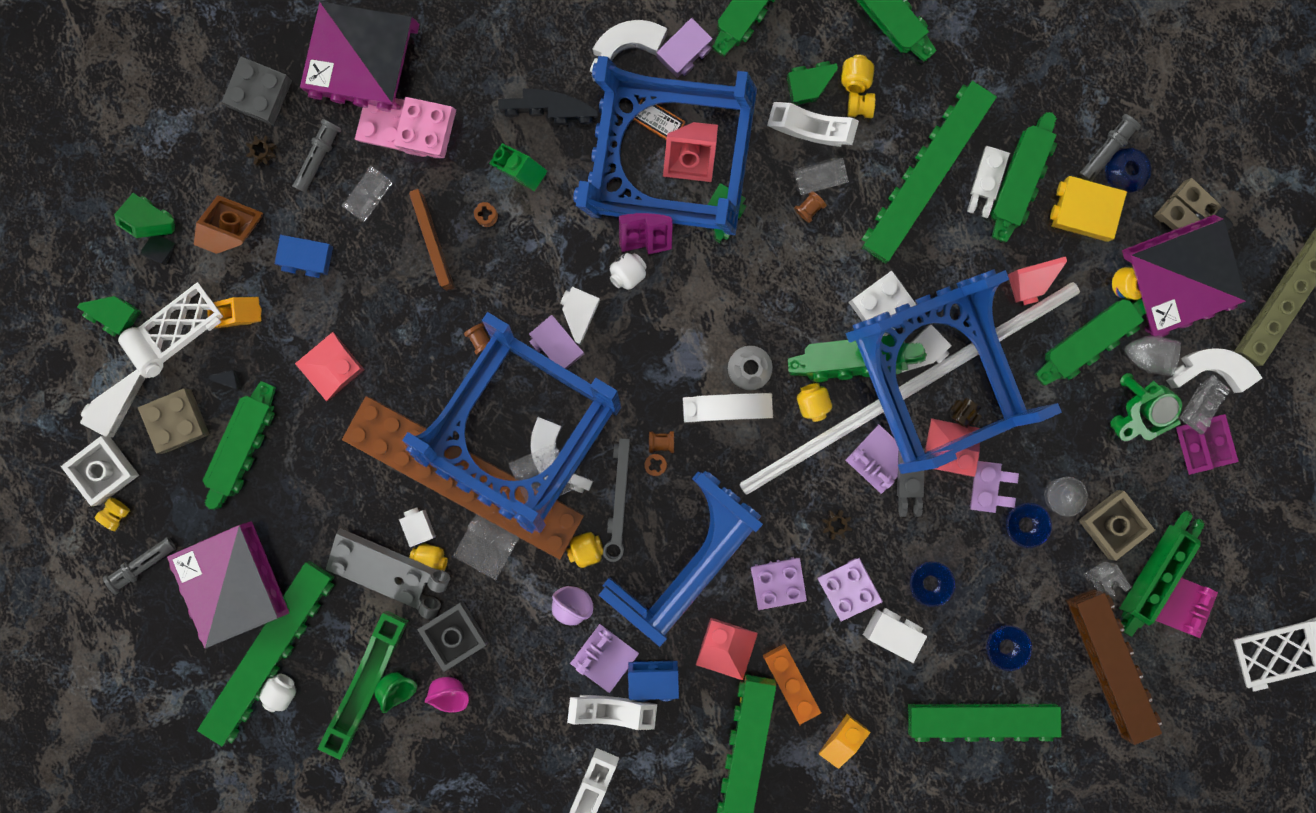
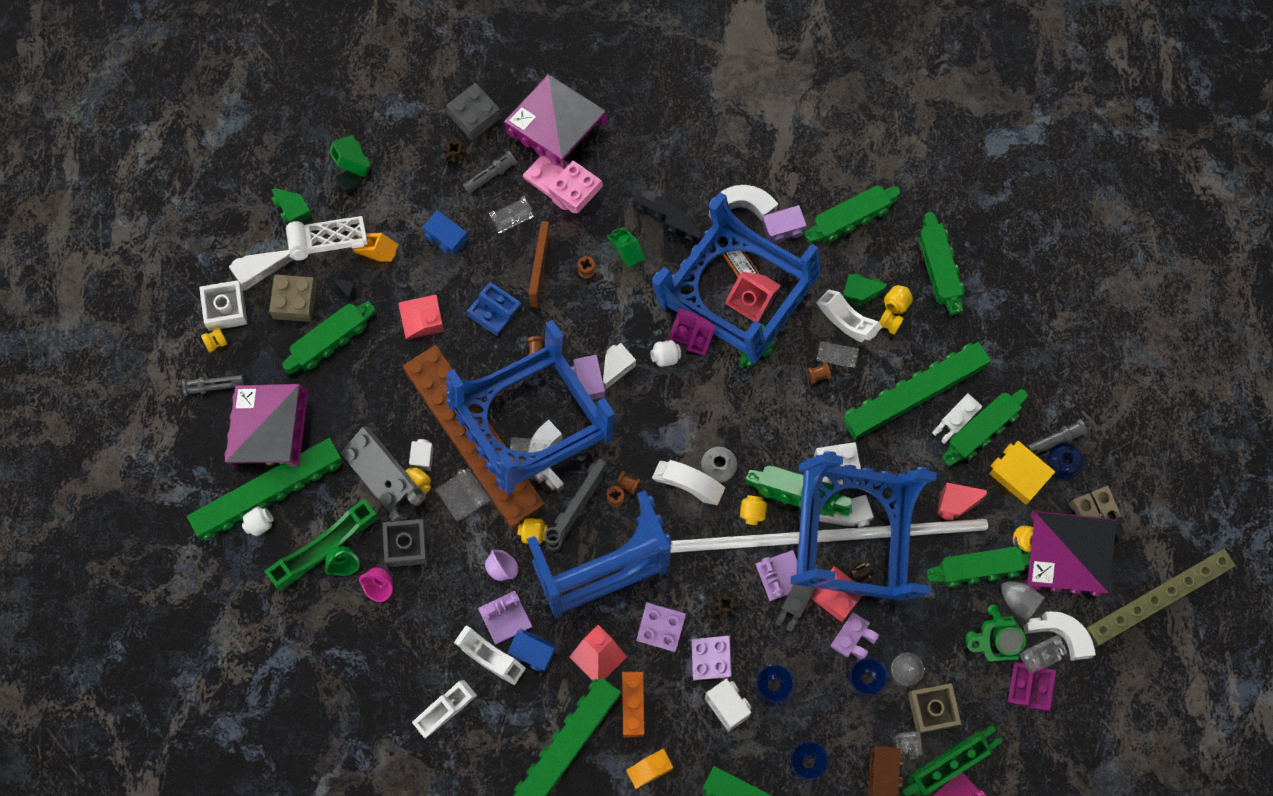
camera: 30 degrees right, 15 degrees down
(225, 225) = (401, 186): dark orange slope -> none
(406, 316) = (493, 308): none -> blue slope

